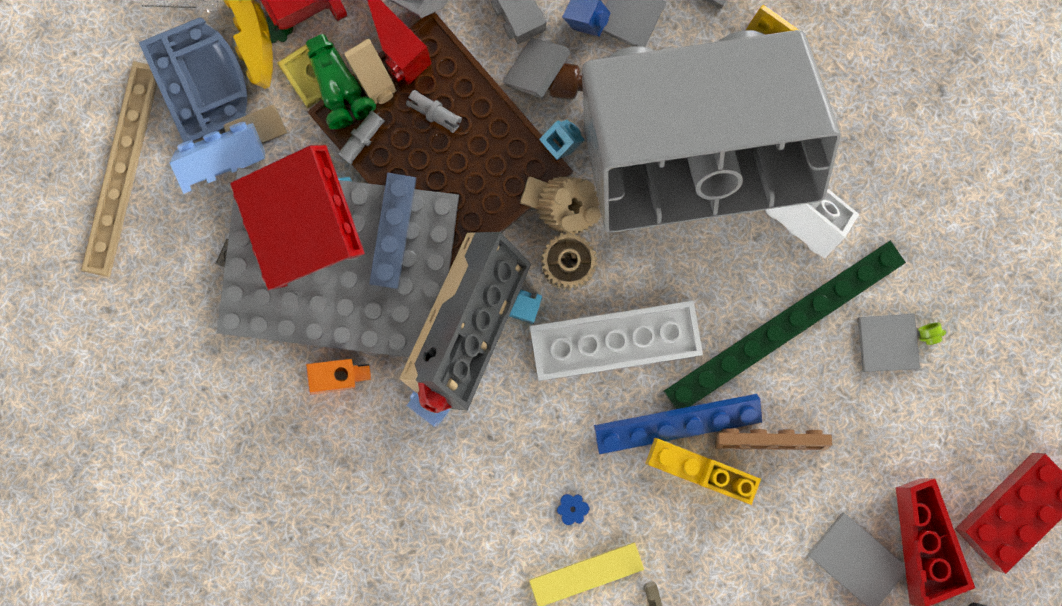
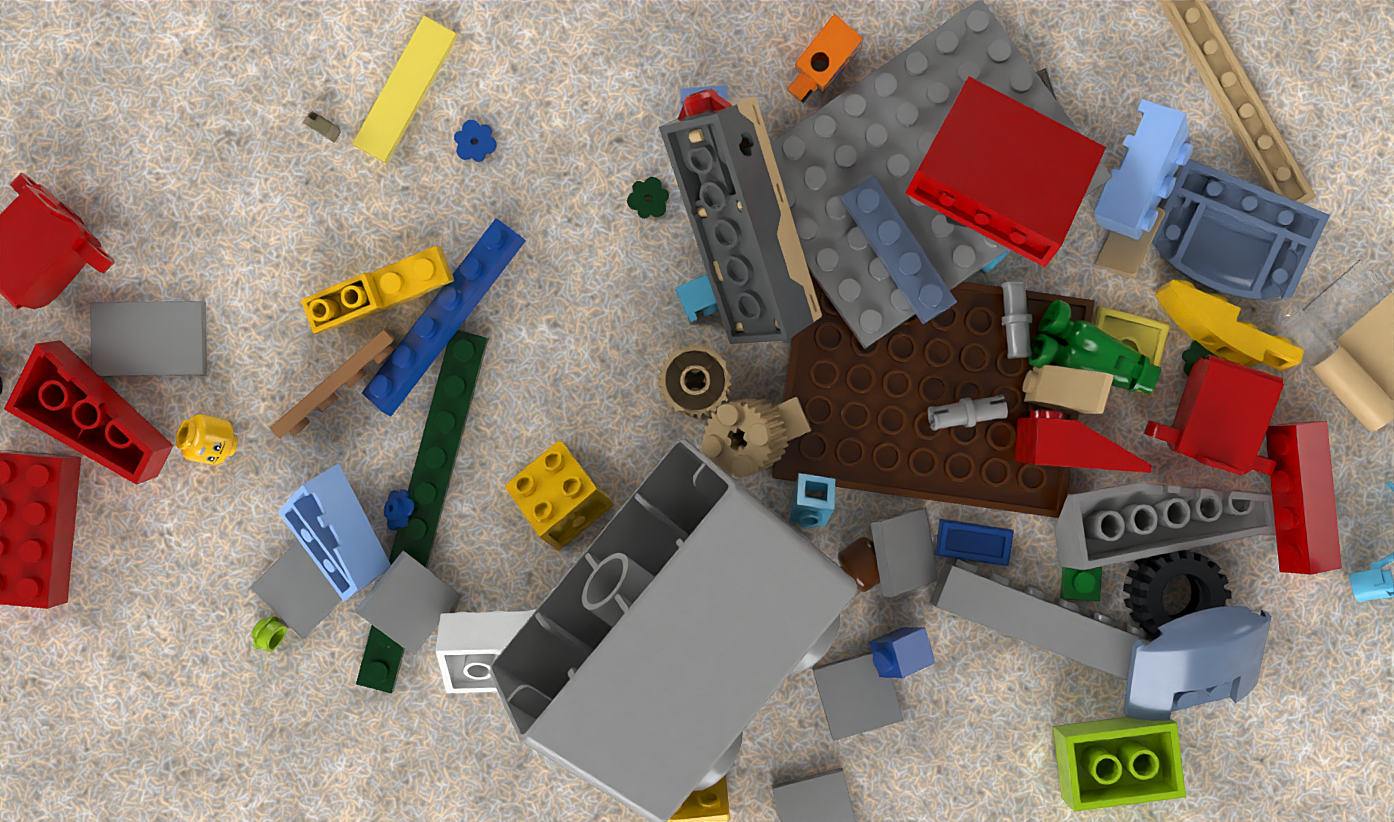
camera: 140 degrees right, 5 degrees up
(492, 40) = (974, 542): none -> blue tile
(495, 393) = (651, 187): none -> dark green plant
(616, 340) = (578, 345): white plate -> none
(701, 267) = (557, 496): none -> yellow bracket
(798, 338) = (398, 509): none -> blue plant
(837, 280) = (407, 603): none -> light grey tile
(844, 353) = (336, 532): none -> light blue wedge
(873, 472) = (206, 439): none -> yellow head

